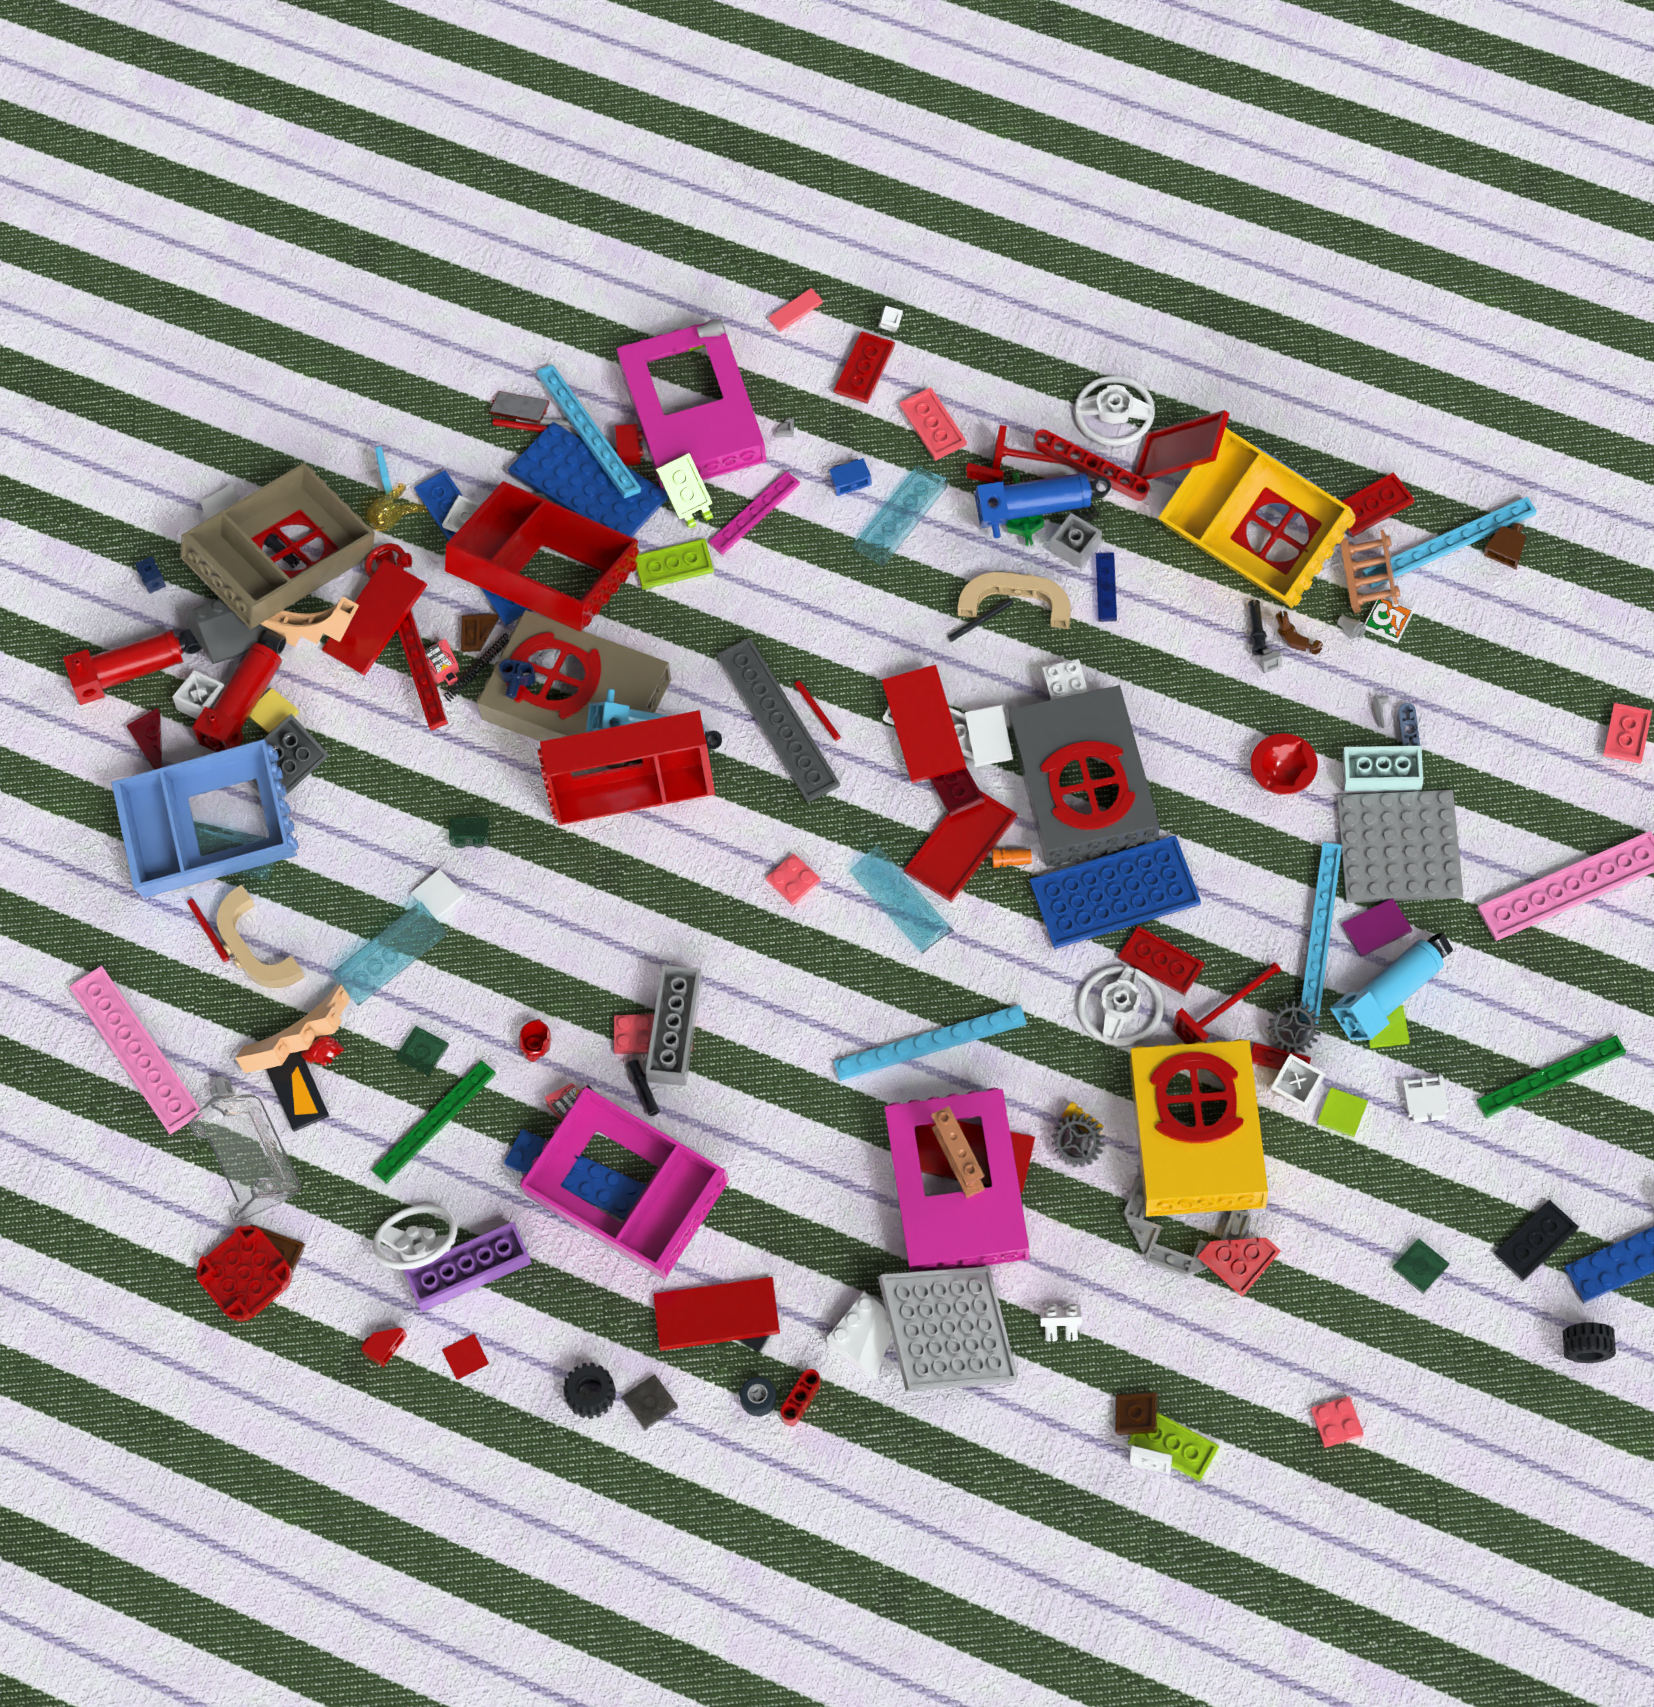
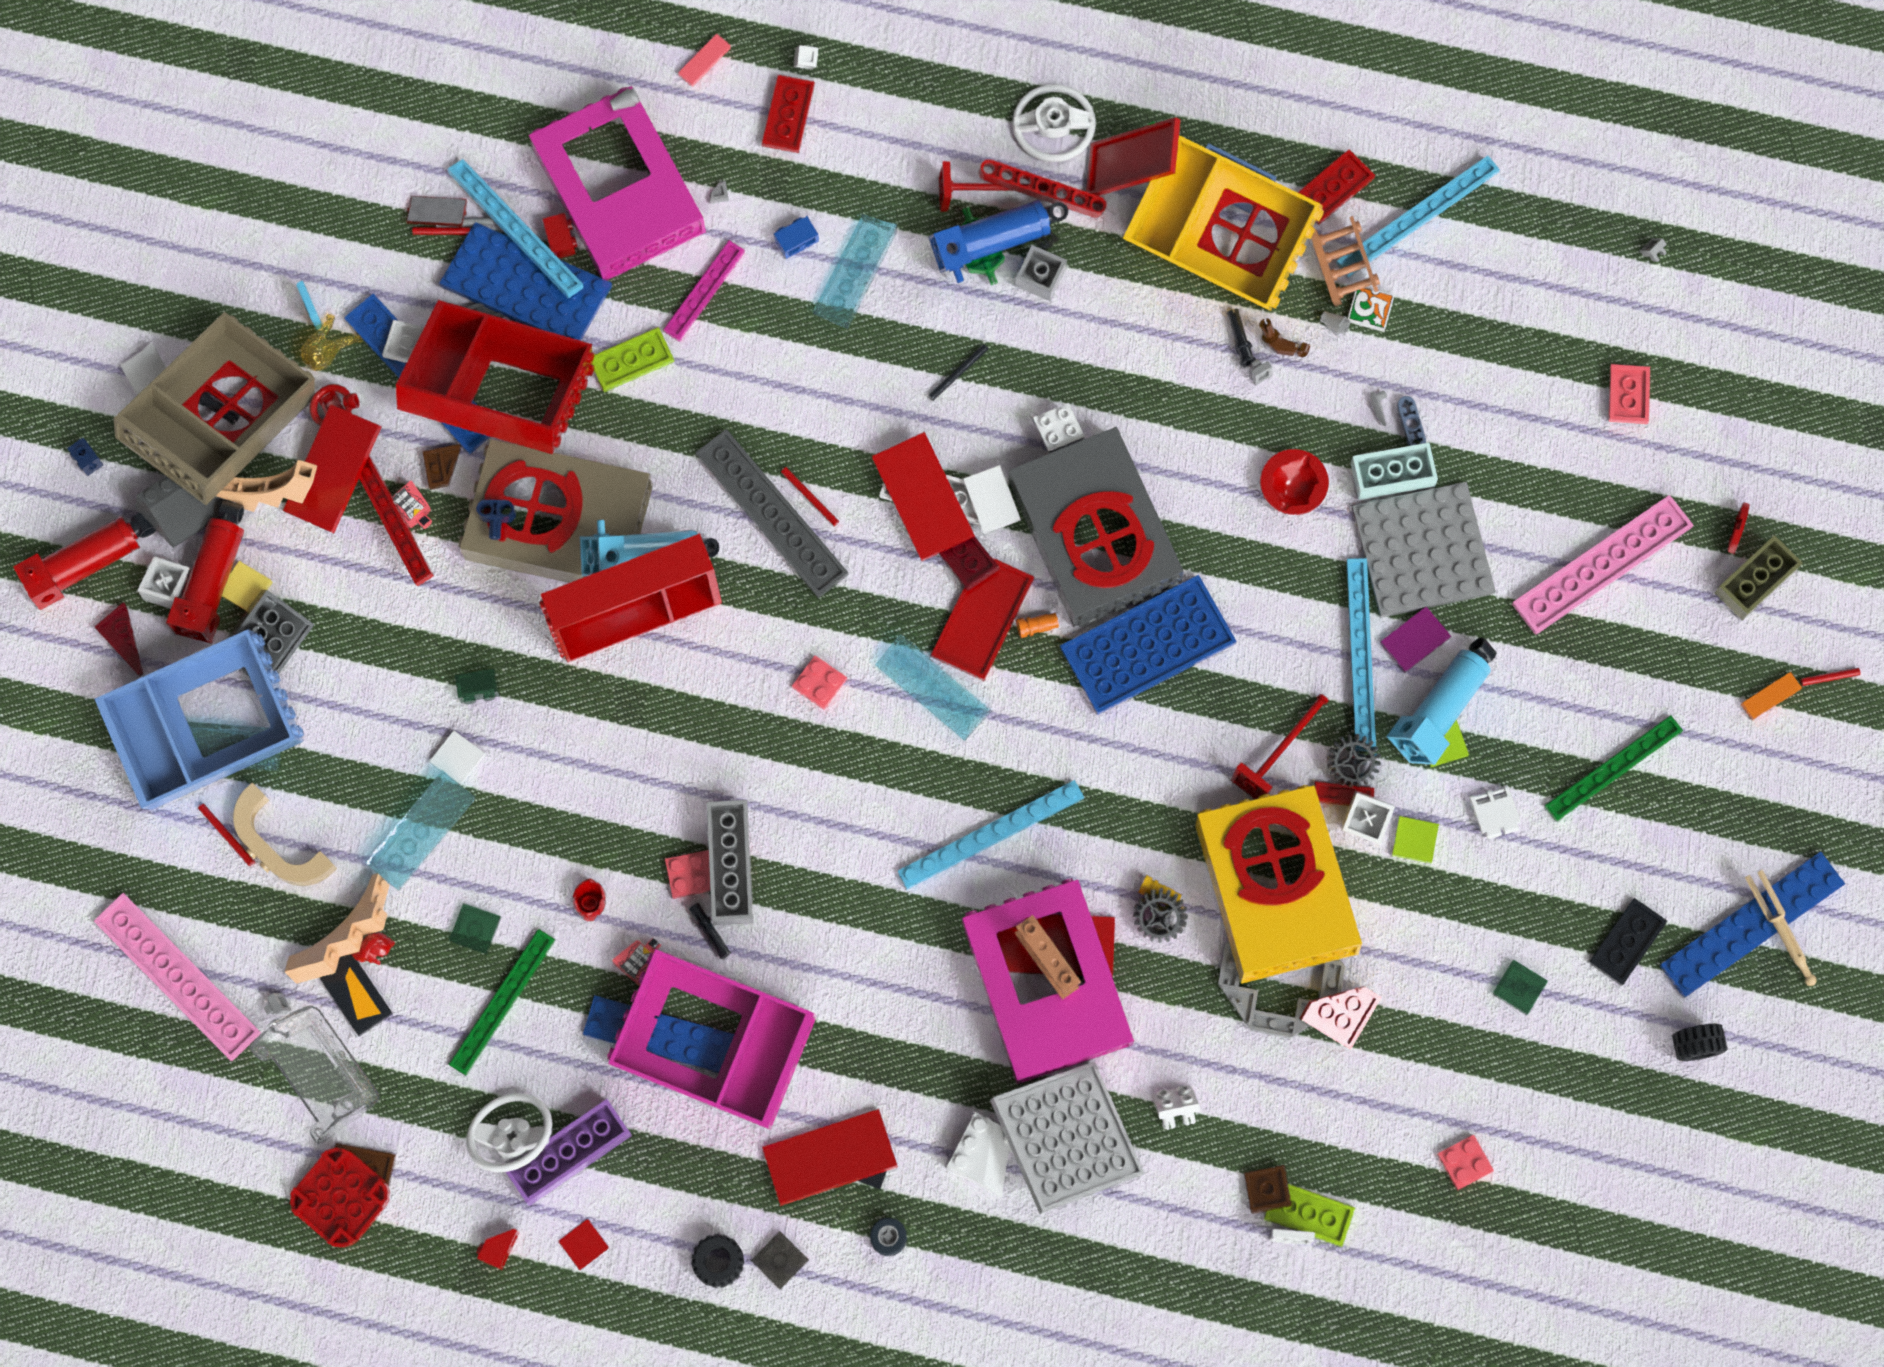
camera: 15 degrees left, 10 degrees up
(477, 666) = (443, 509): black piece -> none
(685, 489) = (629, 279): tile -> none
(804, 1388) = (938, 1222): red beam -> none
(933, 424) = (870, 165): coral plate -> none
(984, 473) = (934, 213): red tile -> none
(1016, 585) = (991, 329): tan arch -> none
(1106, 587) = (1080, 317): clear blue tile -> none
(1118, 1013) = (1173, 774): white piece -> none
(1161, 960) = (1207, 709): red tile -> none
(1506, 546) = (1477, 211): reddish brown torso -> none

